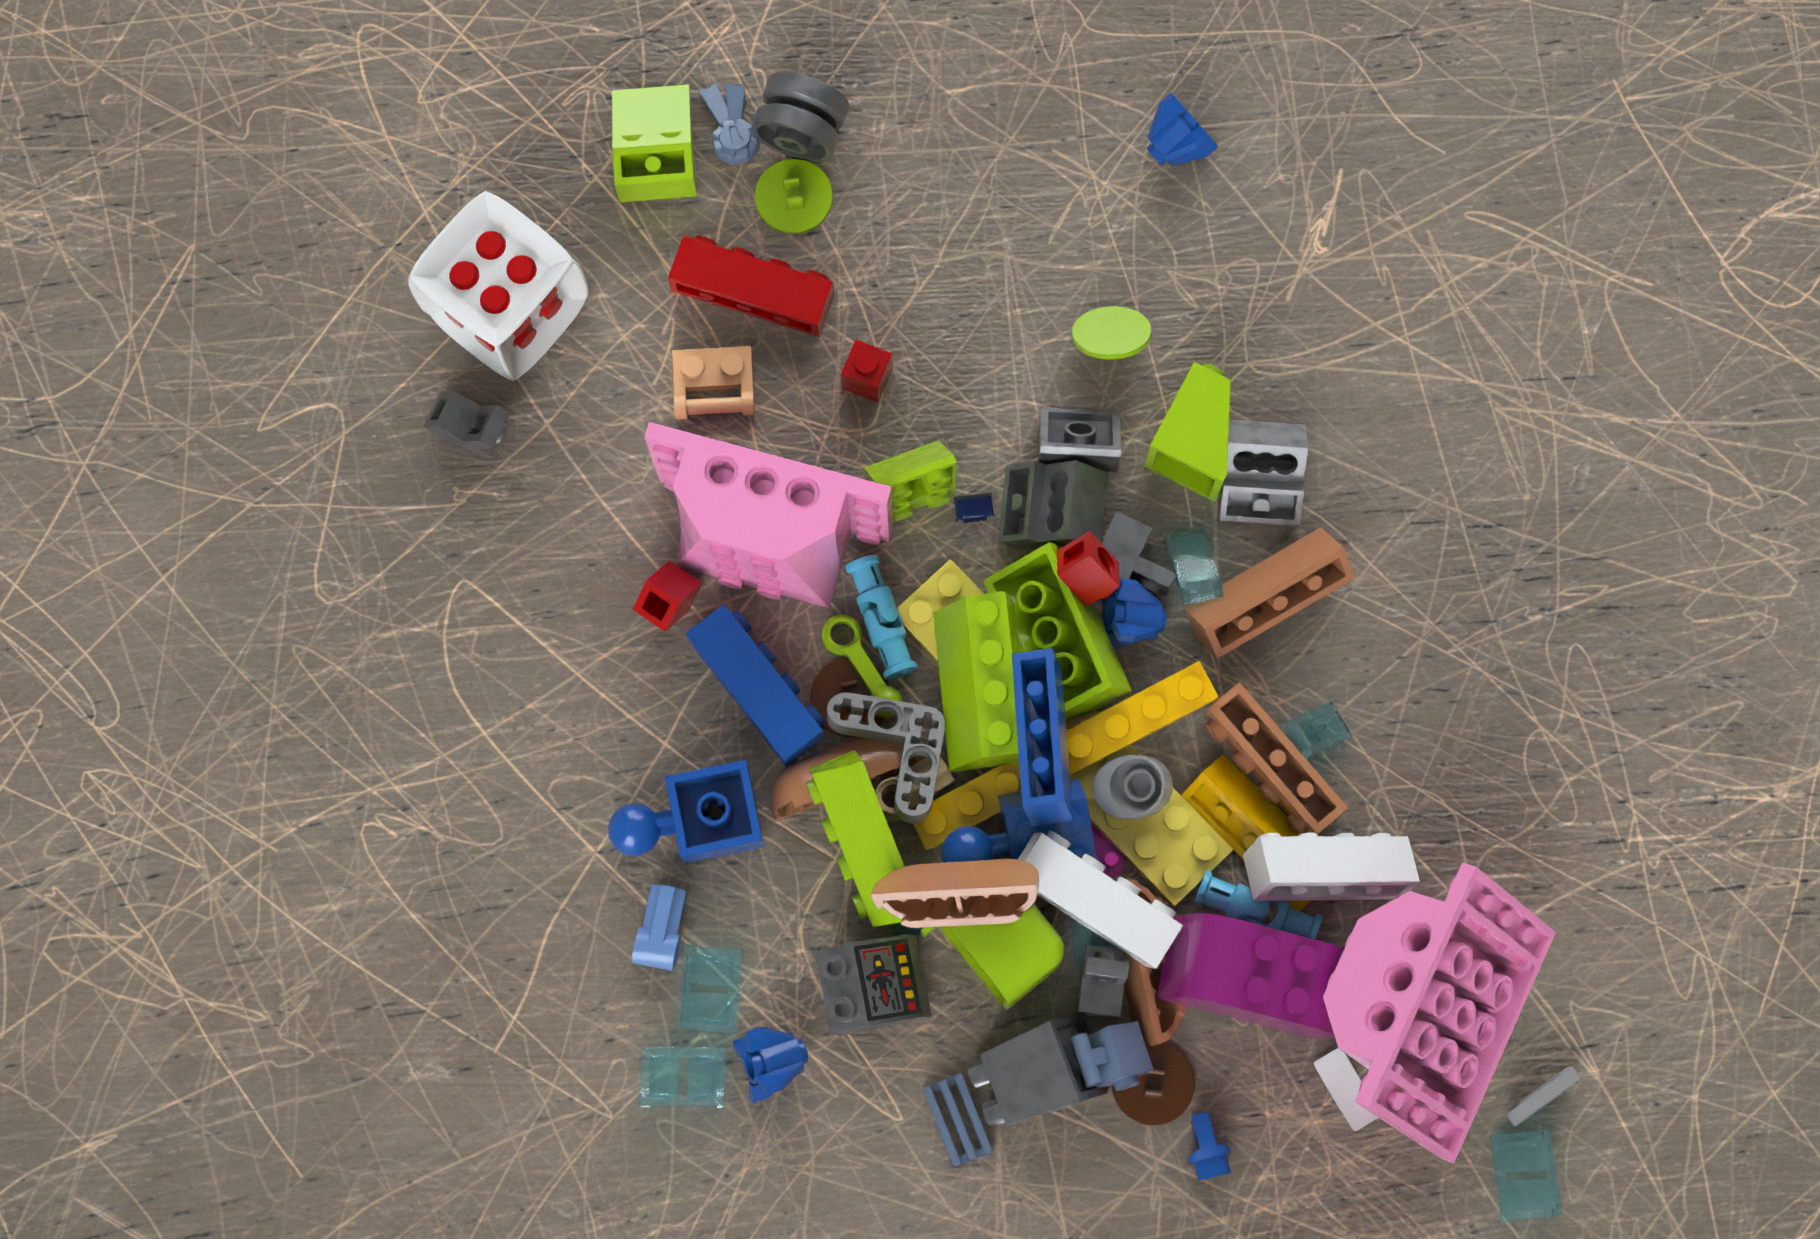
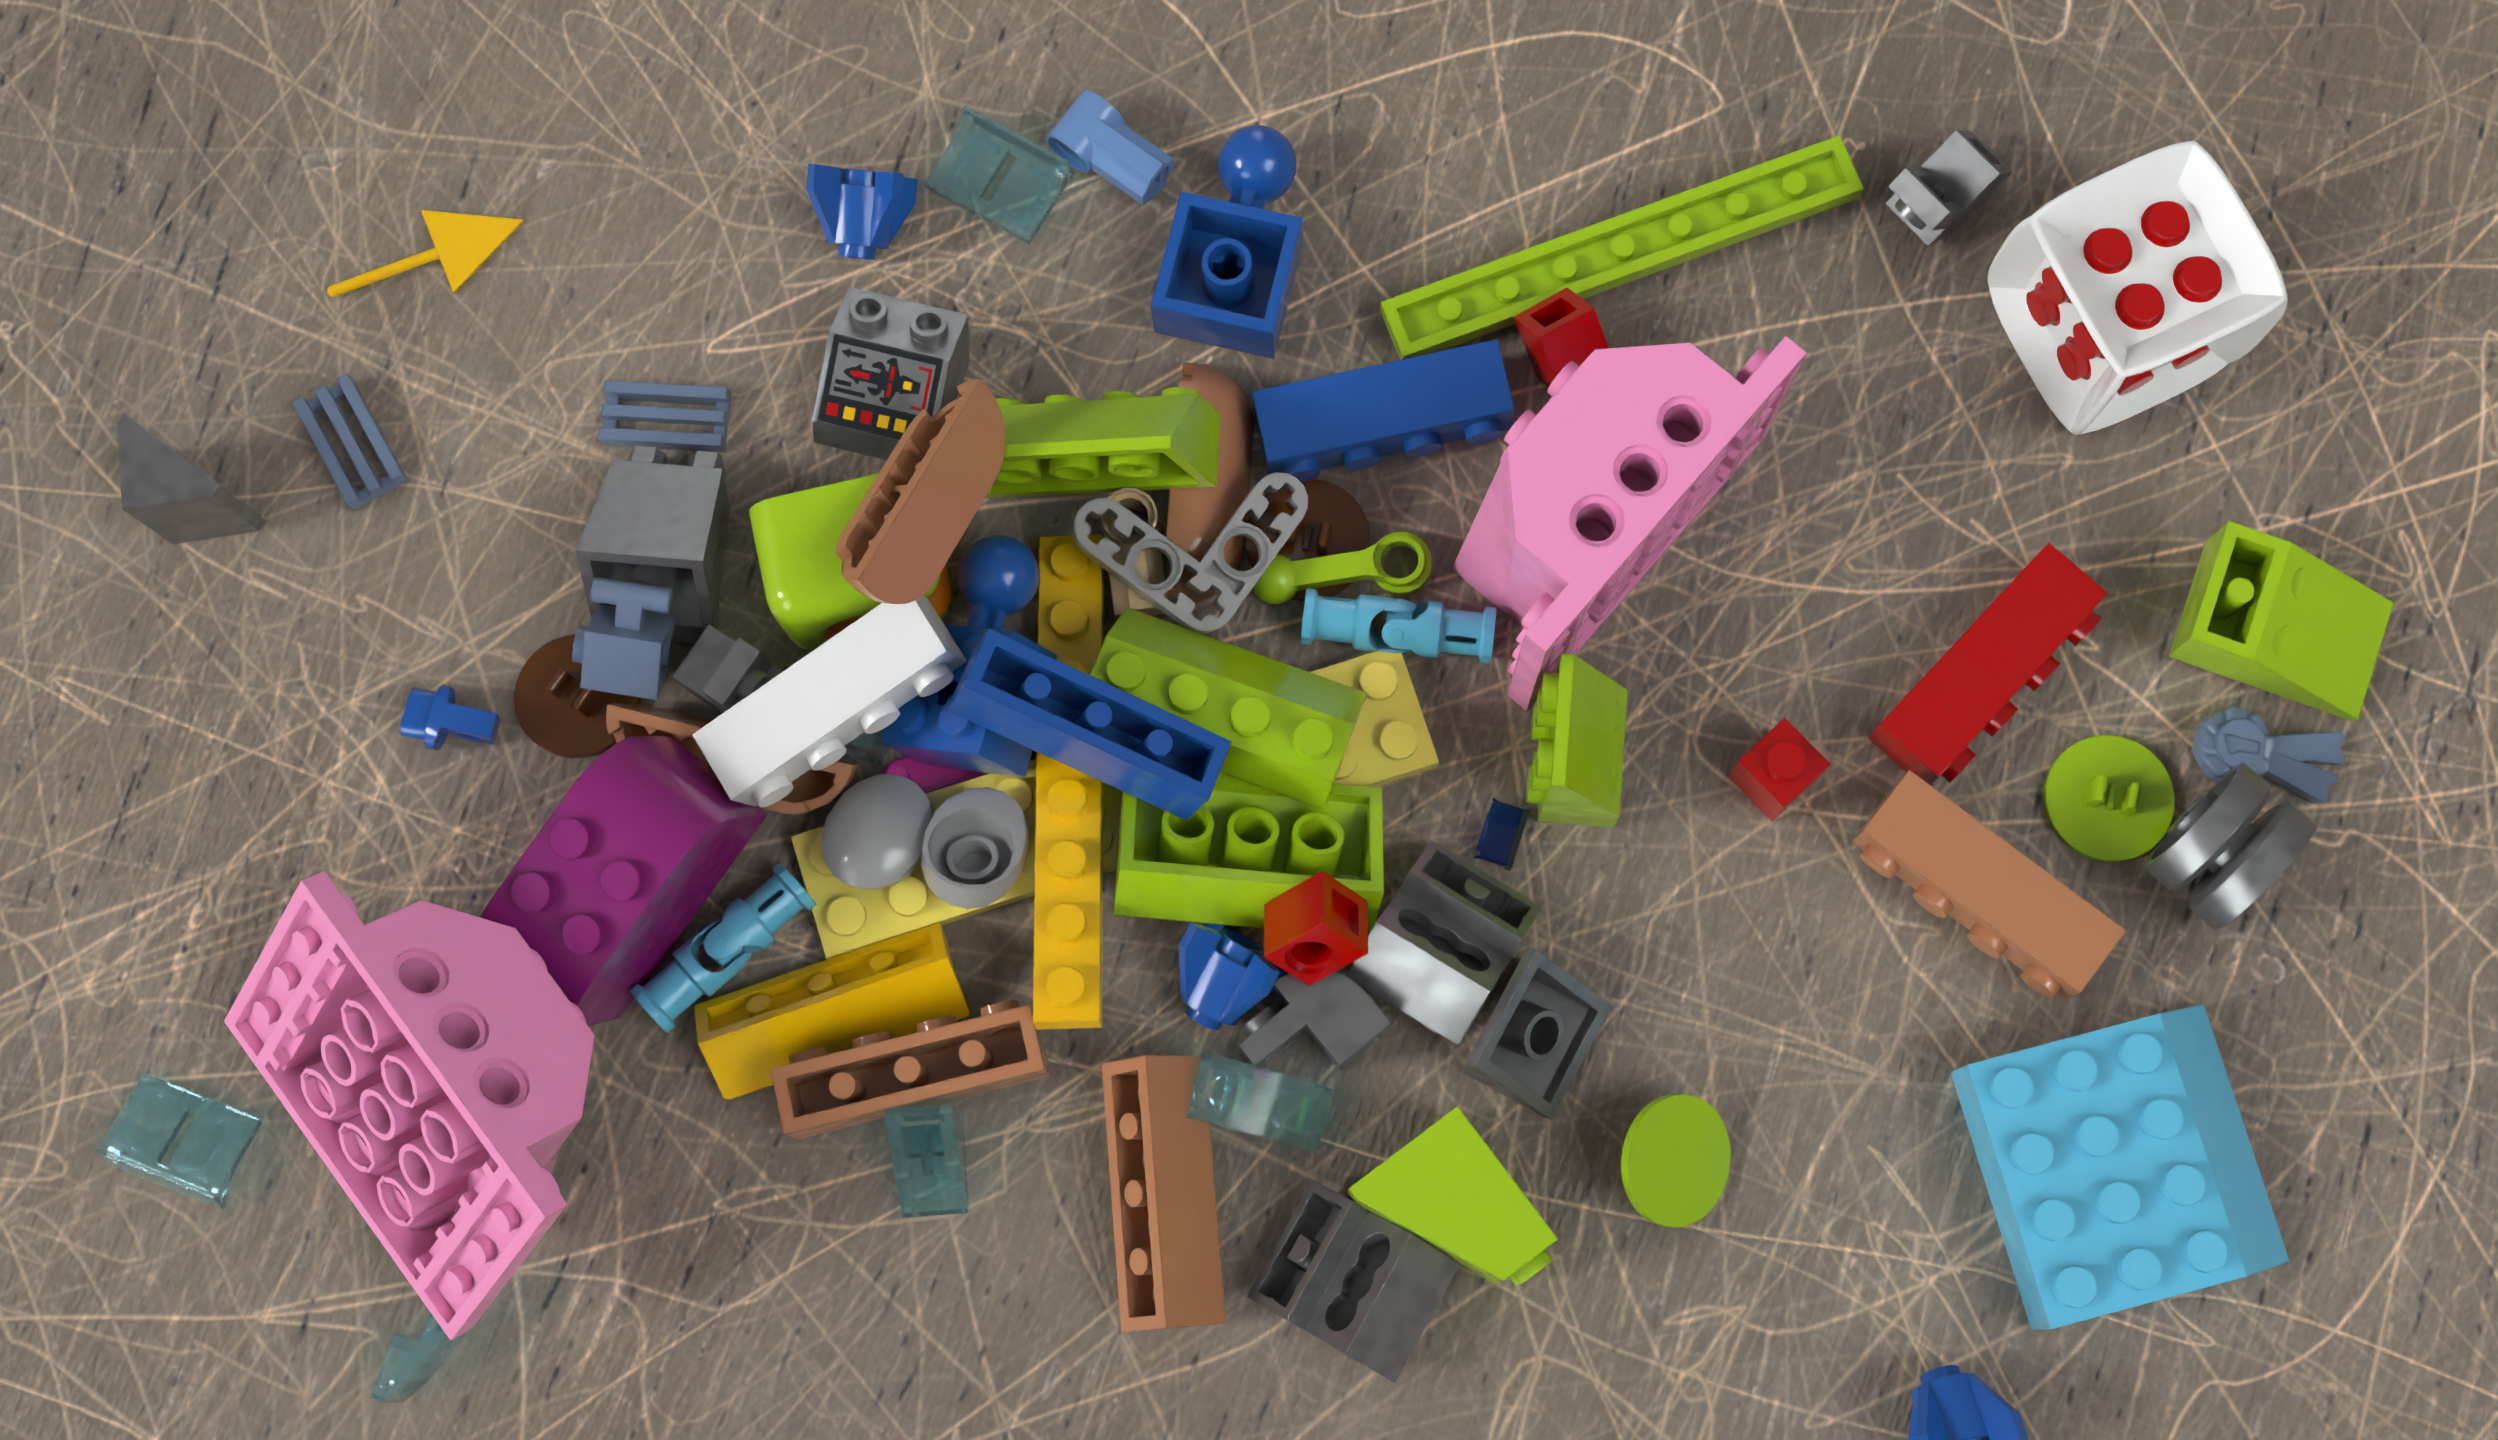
camera: 120 degrees right, 0 degrees up
(590, 594) = (1623, 248): none -> lime plate
(661, 1077) = (912, 69): clear light blue piece -> none
(709, 371) = (1880, 560): light nougat plate -> none
(881, 234) = (1987, 888): none -> nougat brick
(1000, 111) = (2119, 1167): none -> medium azure slope
(1150, 848) = (876, 832): none -> light grey hat
(1330, 867) = (715, 1067): white brick -> none
(1543, 1096) = (263, 1216): light grey tile -> none
(1574, 963) = (412, 1362): none -> clear light blue slope

